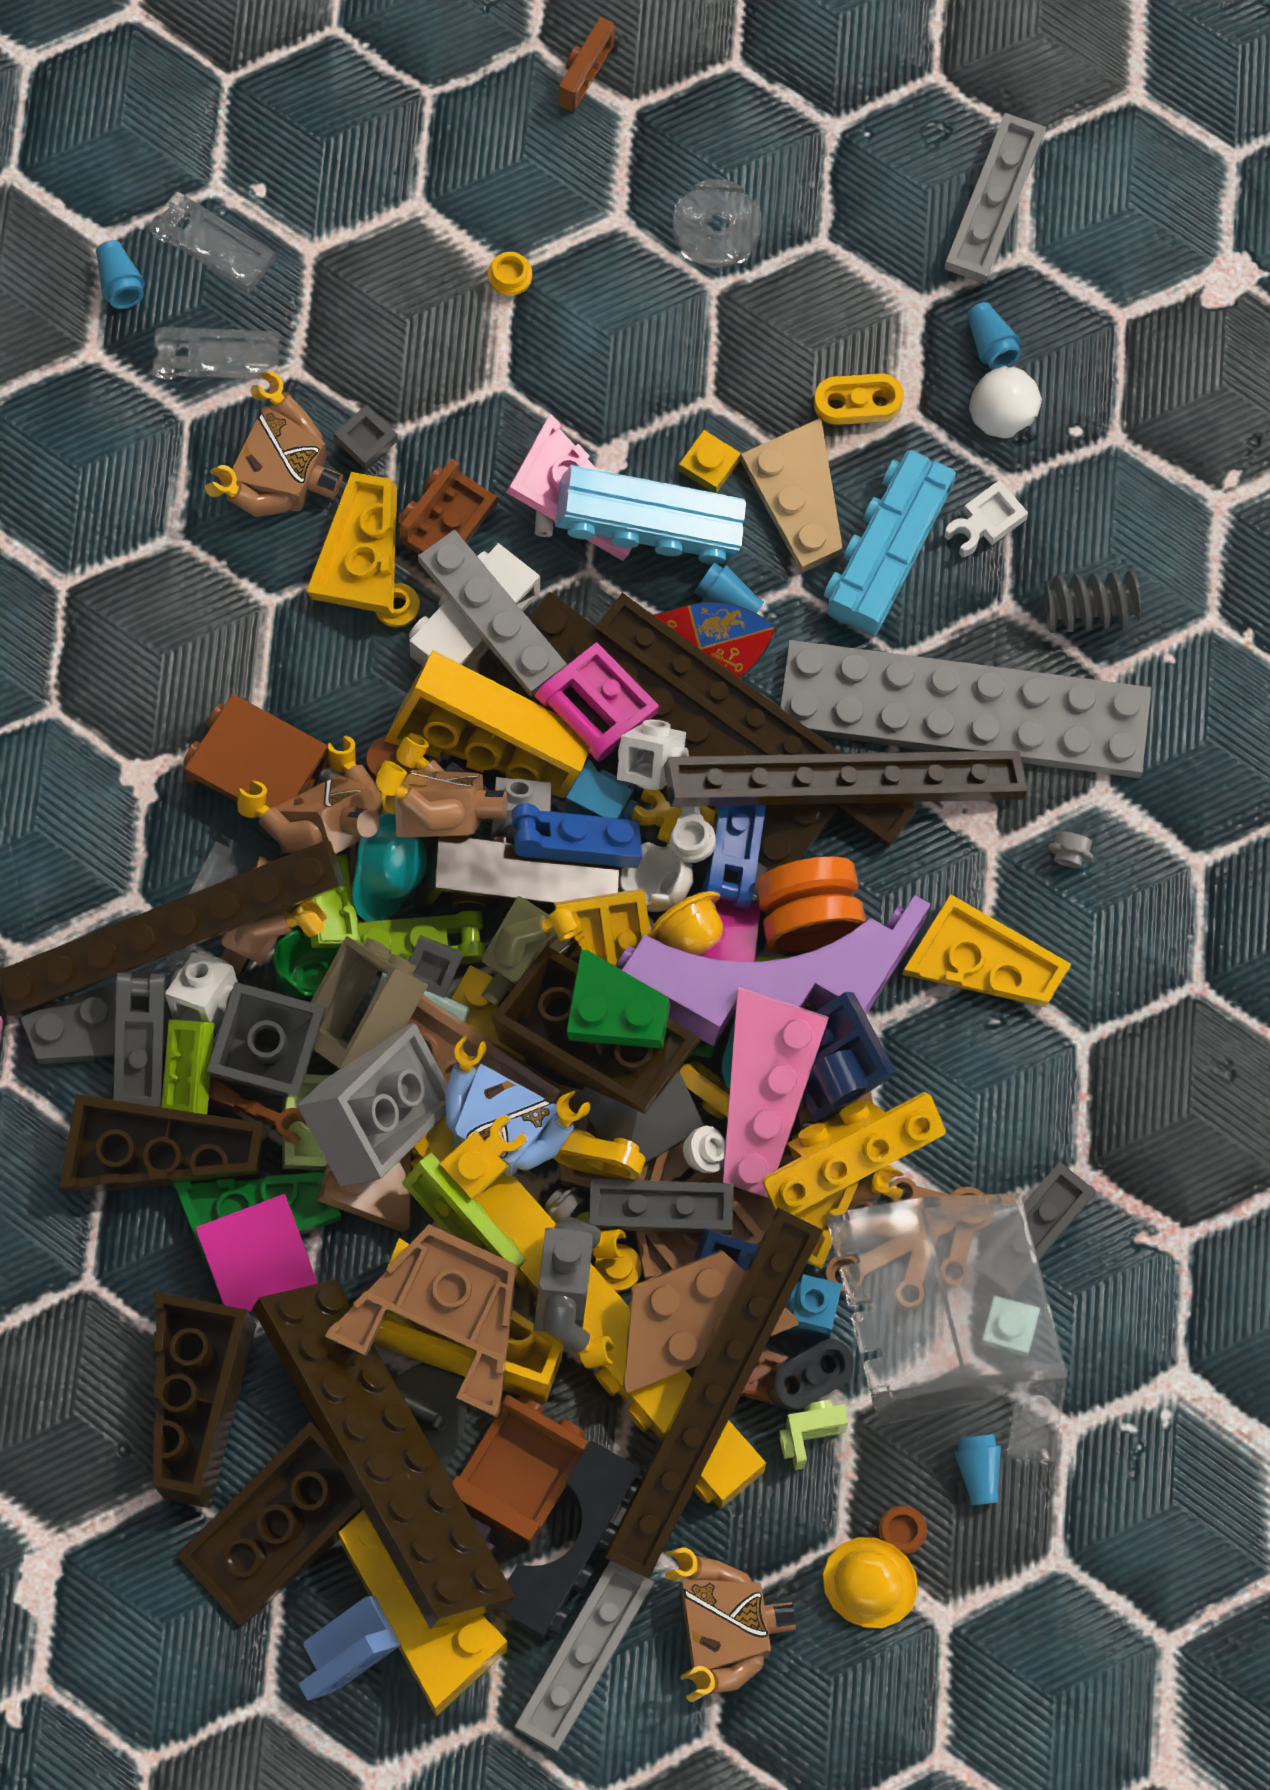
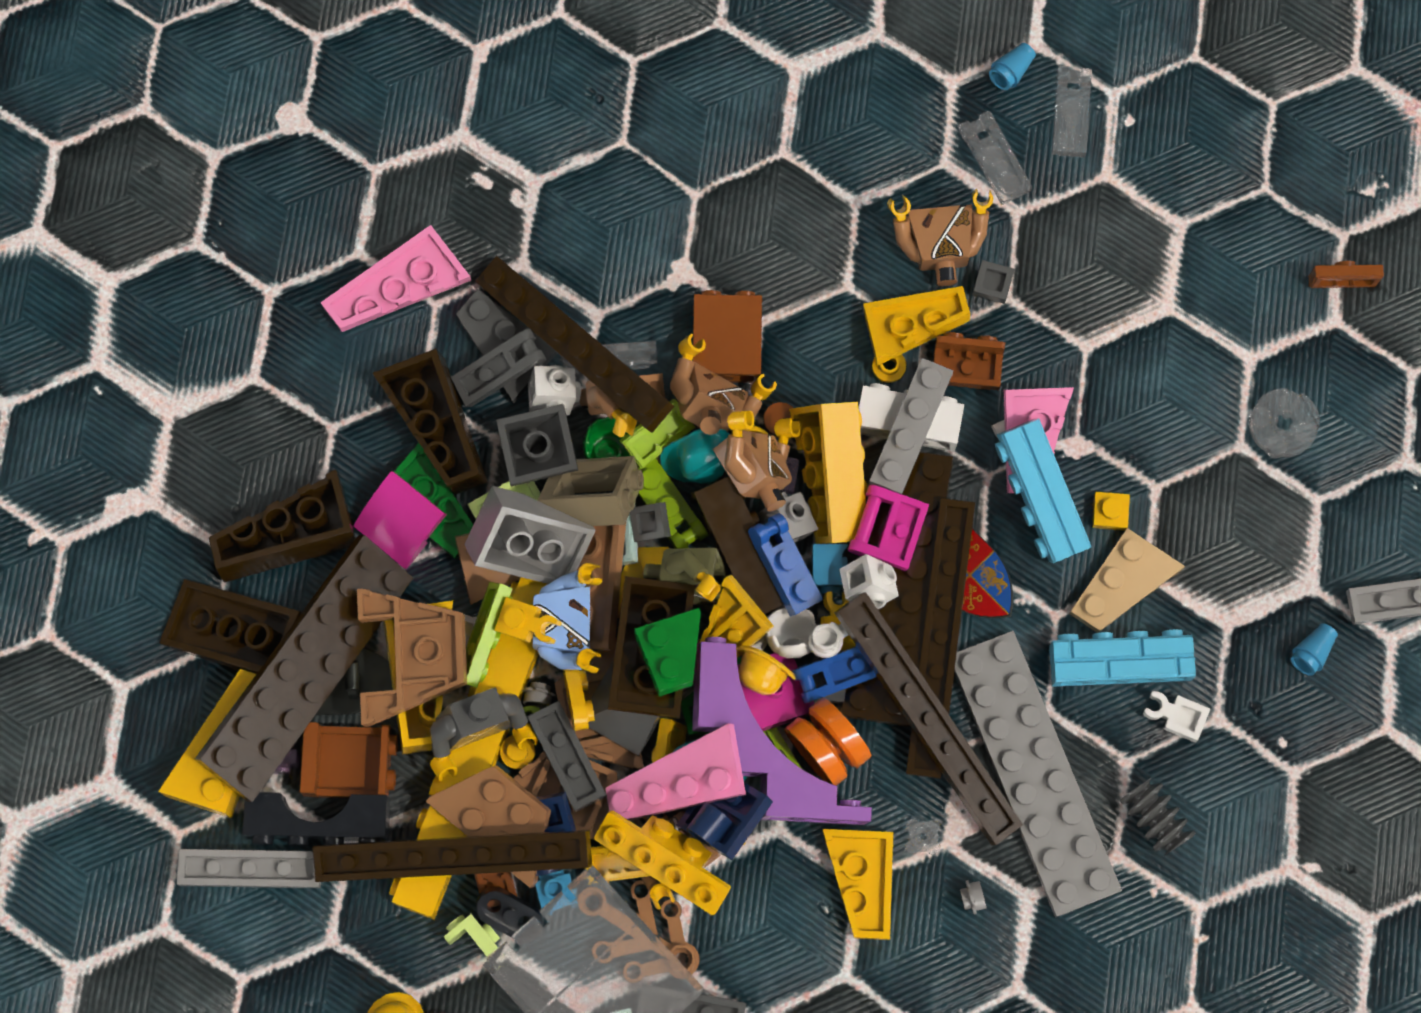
camera: 65 degrees right, 5 degrees up
(186, 1066) = (504, 403): lime plate -> none
(226, 1099) = (494, 446): dark orange piece -> none
(348, 1647) = (173, 716): medium blue panel -> none
(510, 273) = (1165, 310): yellow plate -> none
(705, 1149) = (620, 764): white plate -> none
(725, 587) = (1022, 570): dark azure cone -> none
(725, 1623) = (313, 948): medium nougat torso -> none
(857, 396) = (1216, 583): yellow plate -> none
(970, 854) = (931, 831): none -> clear plate
(1005, 402) = (1272, 683): white hair -> none

